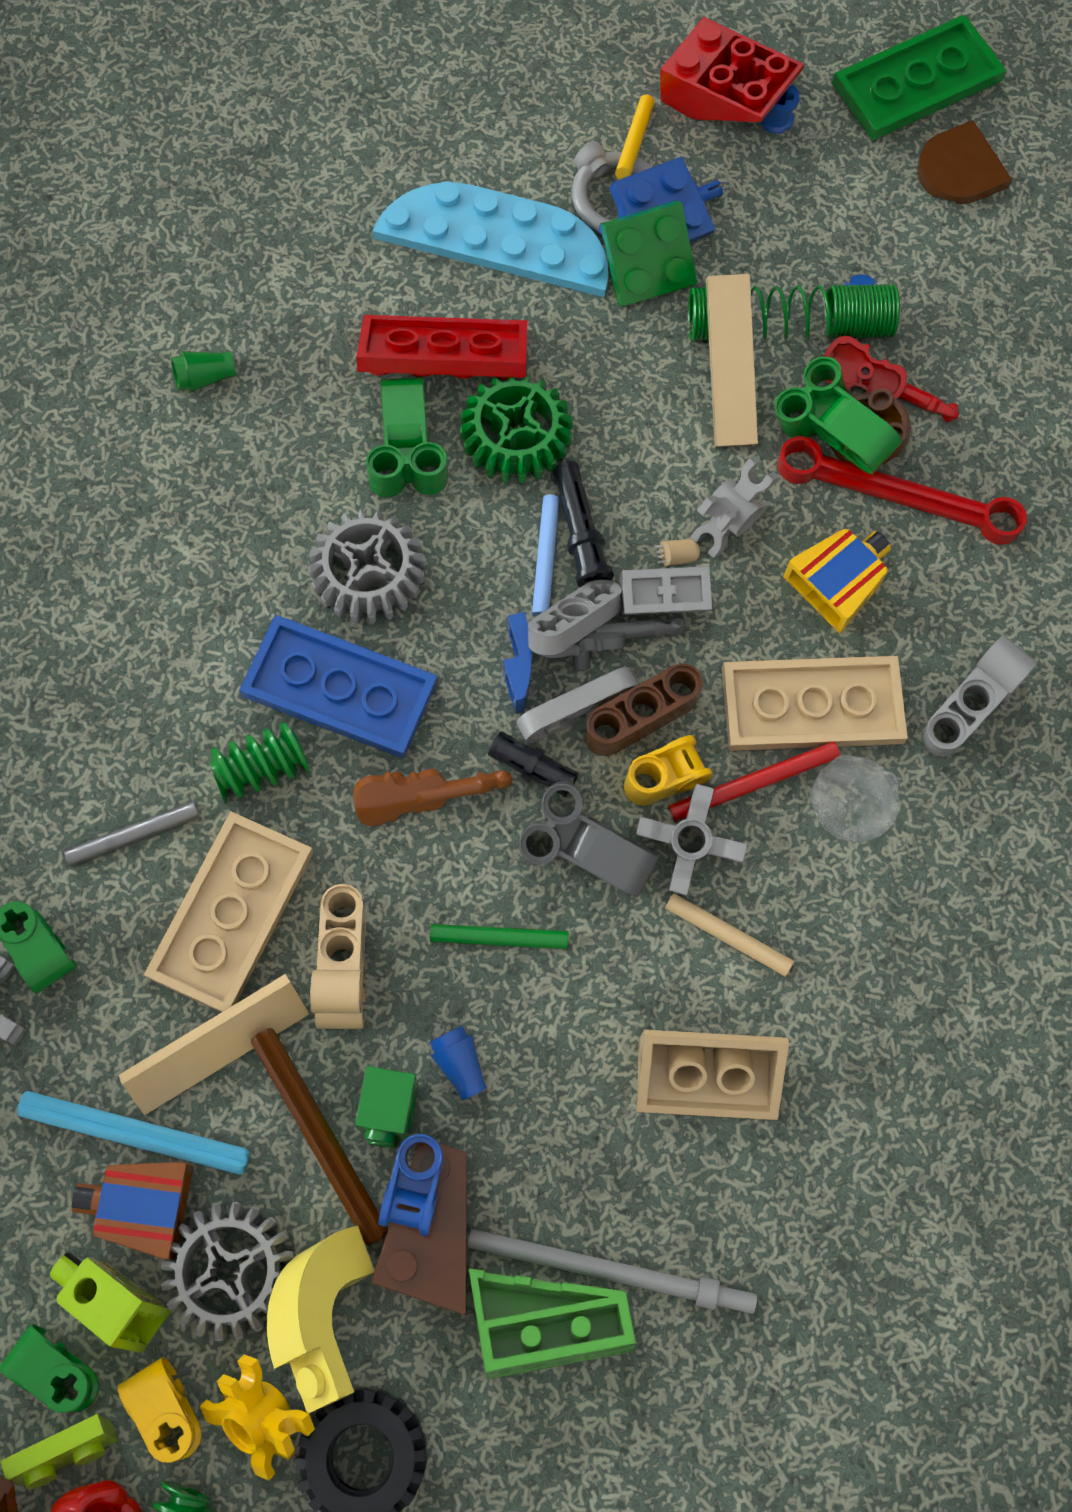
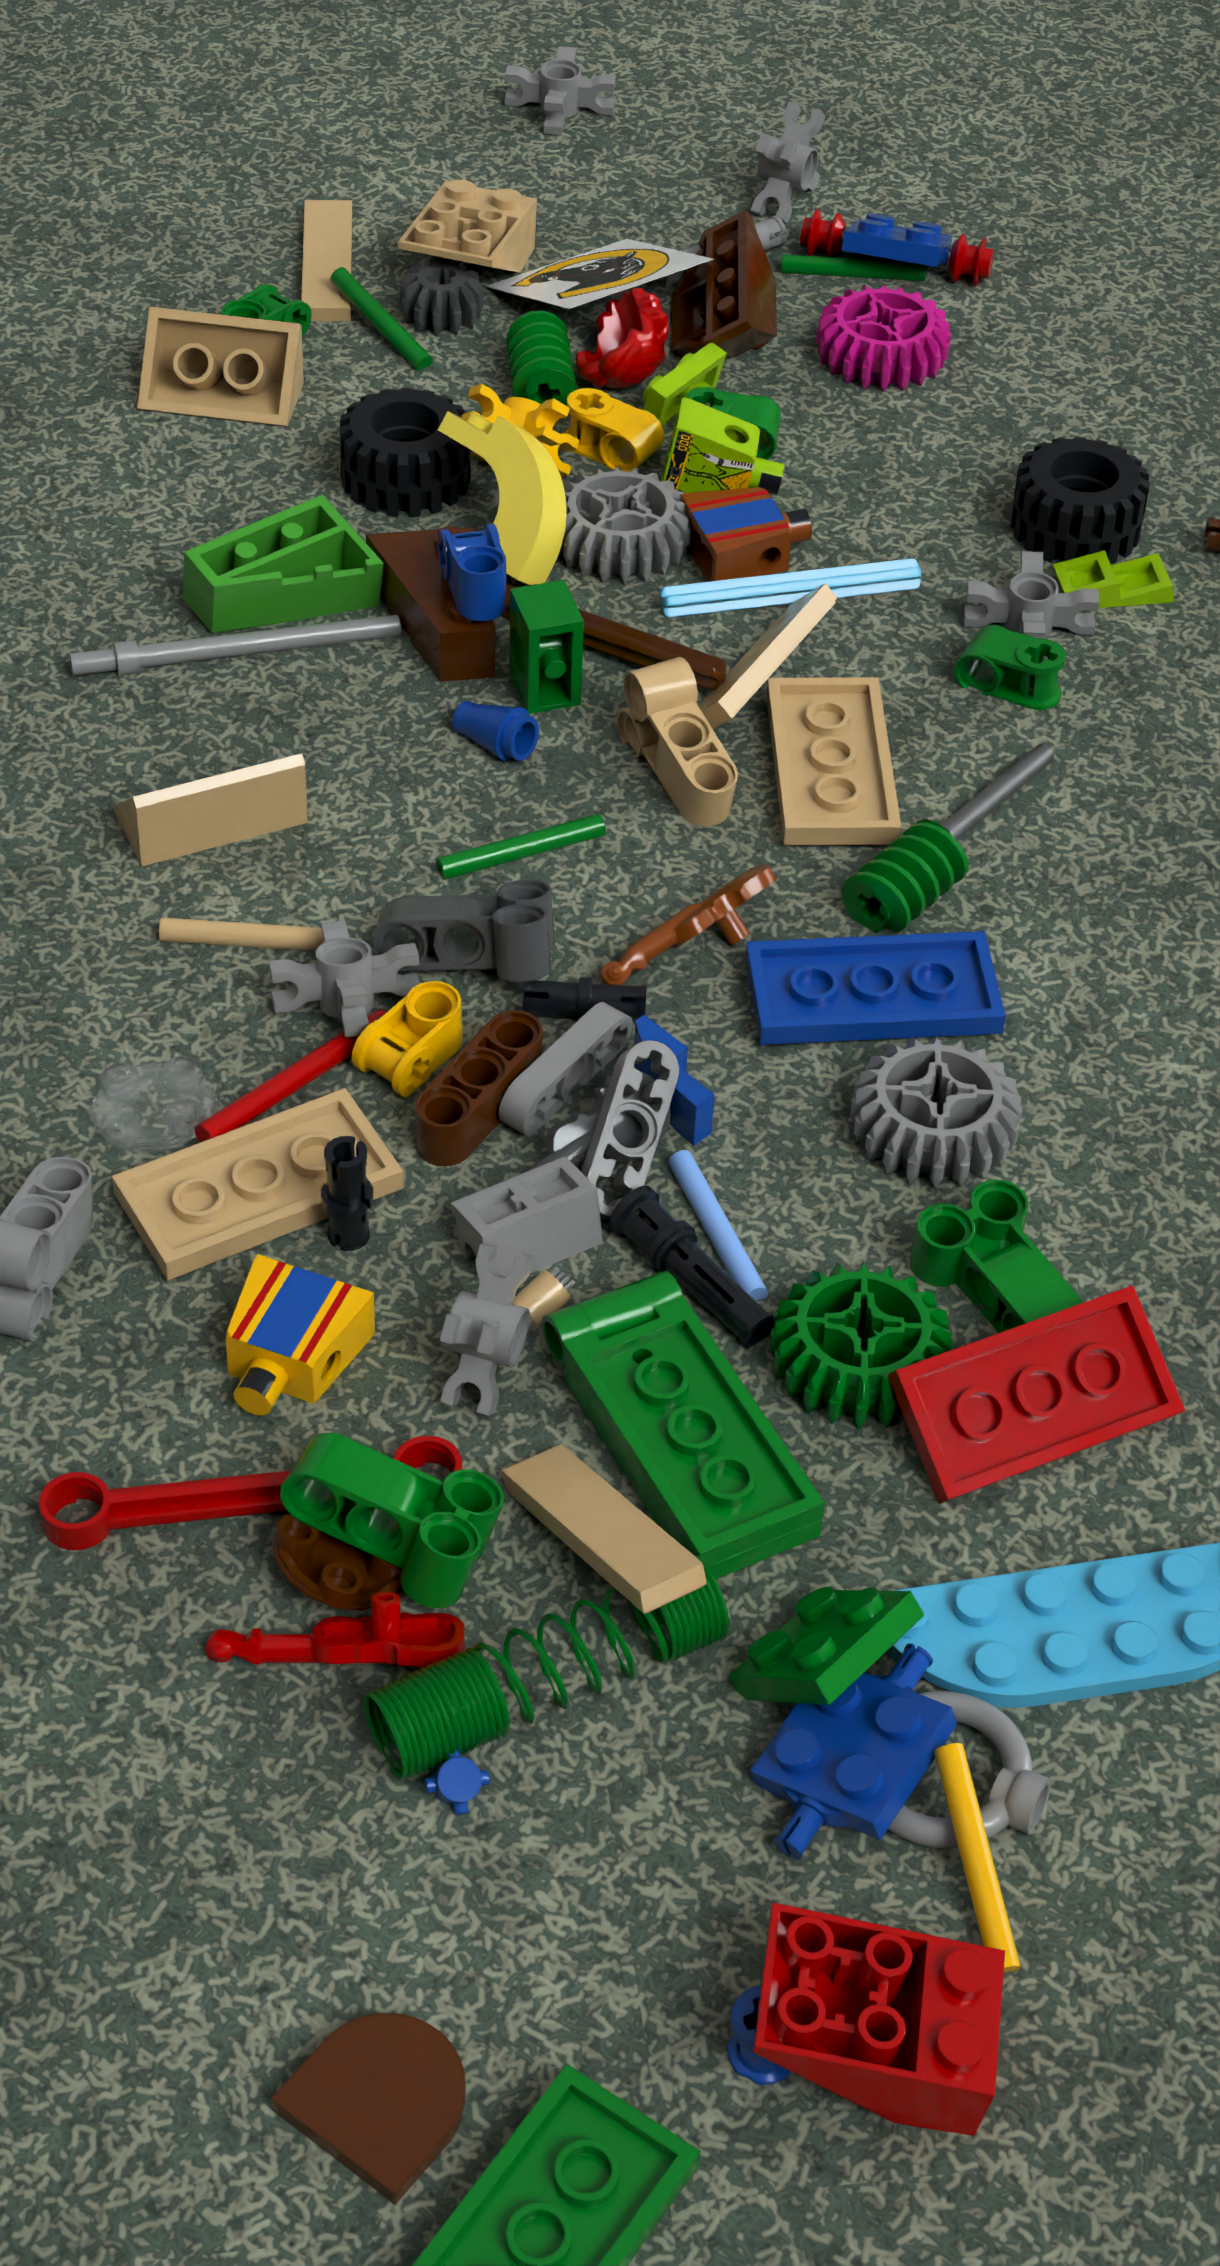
camera: 155 degrees right, 25 degrees down
(649, 418) = (683, 1425): none -> green hinge
(775, 635) = (347, 1193): none -> black pin

